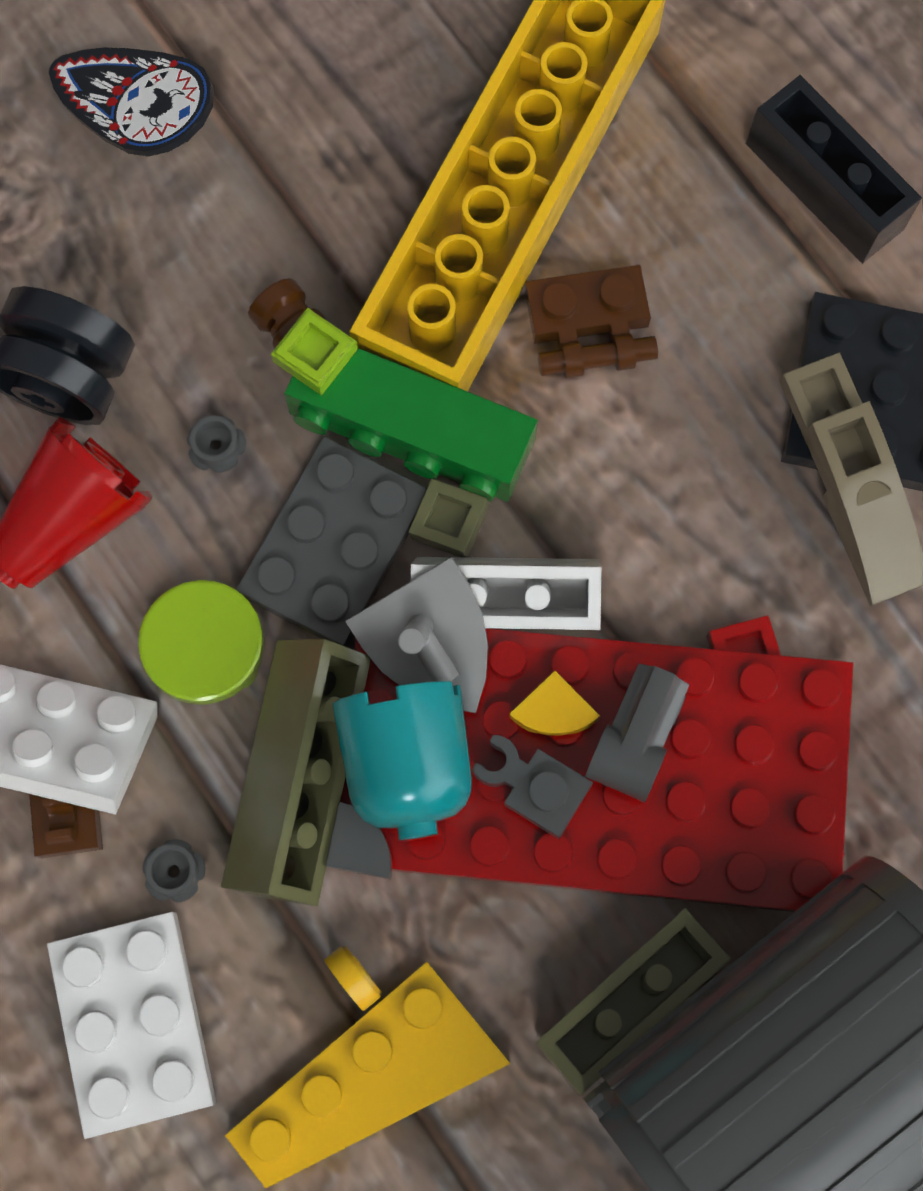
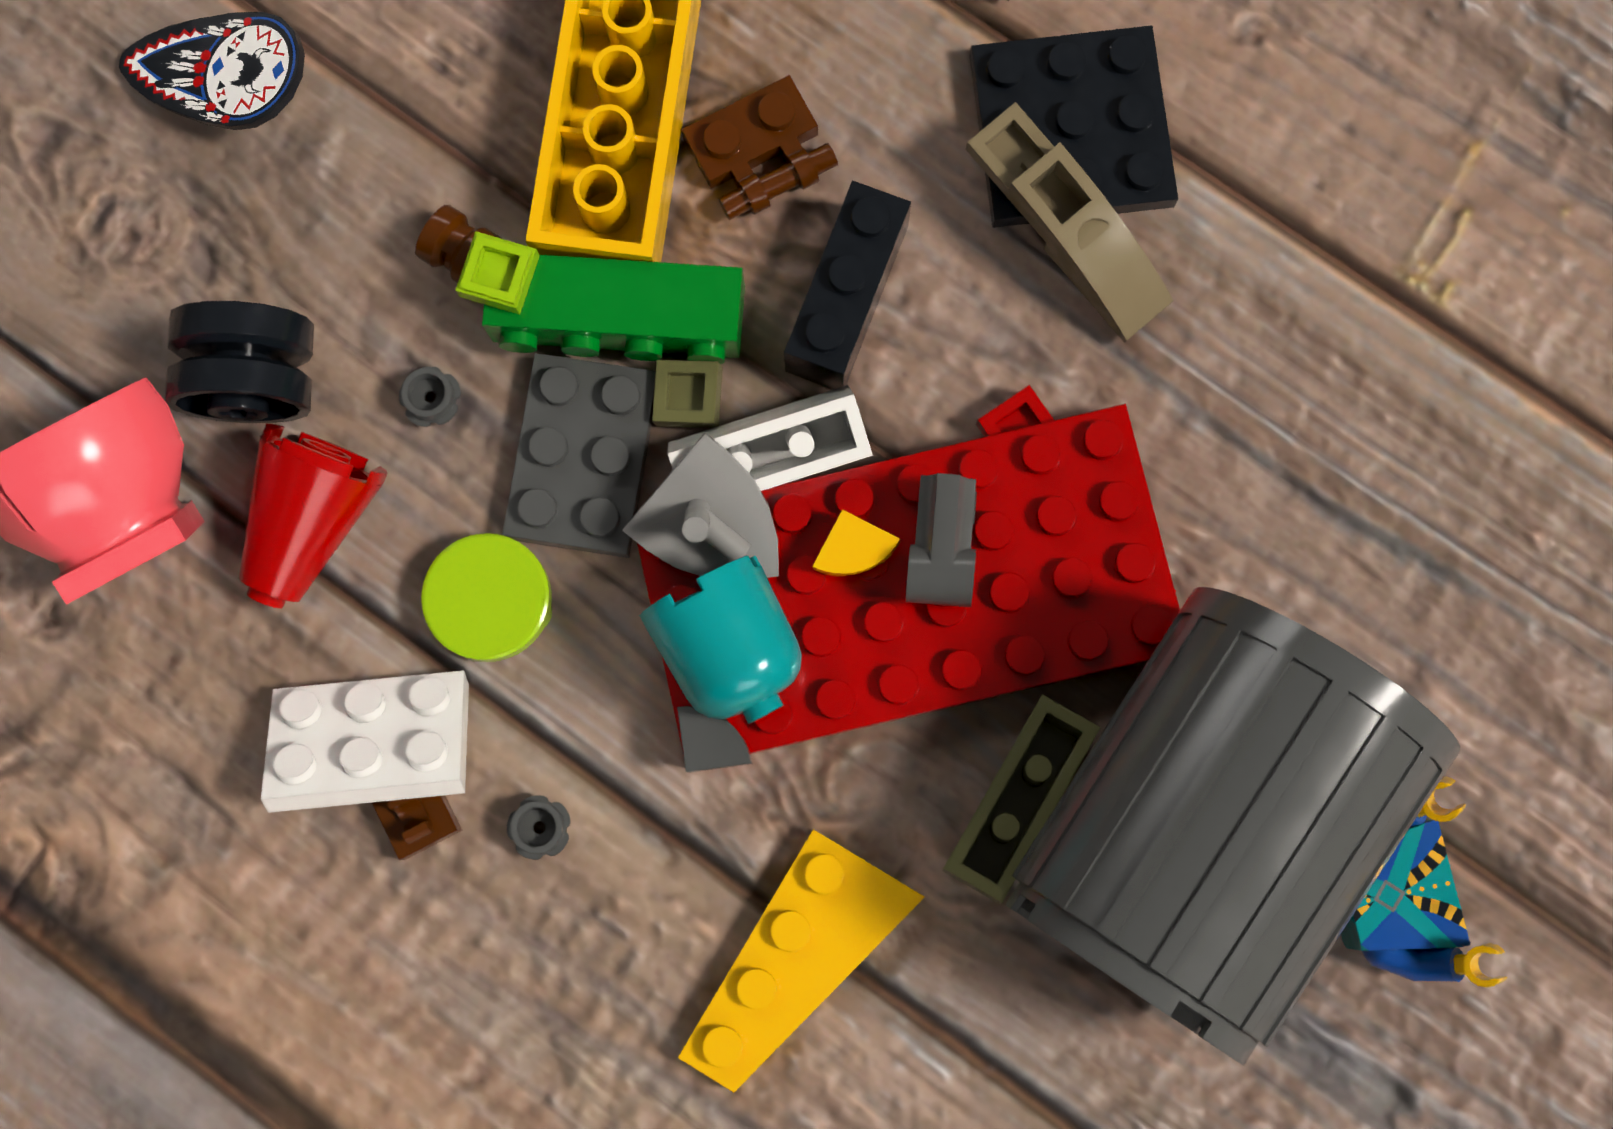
camera: 15 degrees left, 5 degrees up
(131, 1024) = (550, 986): white plate -> none
(294, 773) = (623, 693): olive brick -> none
(353, 977) = (748, 868): yellow tile -> none
(541, 791) = (868, 630): dark grey plate -> none
(628, 469) = (847, 286): none -> black brick

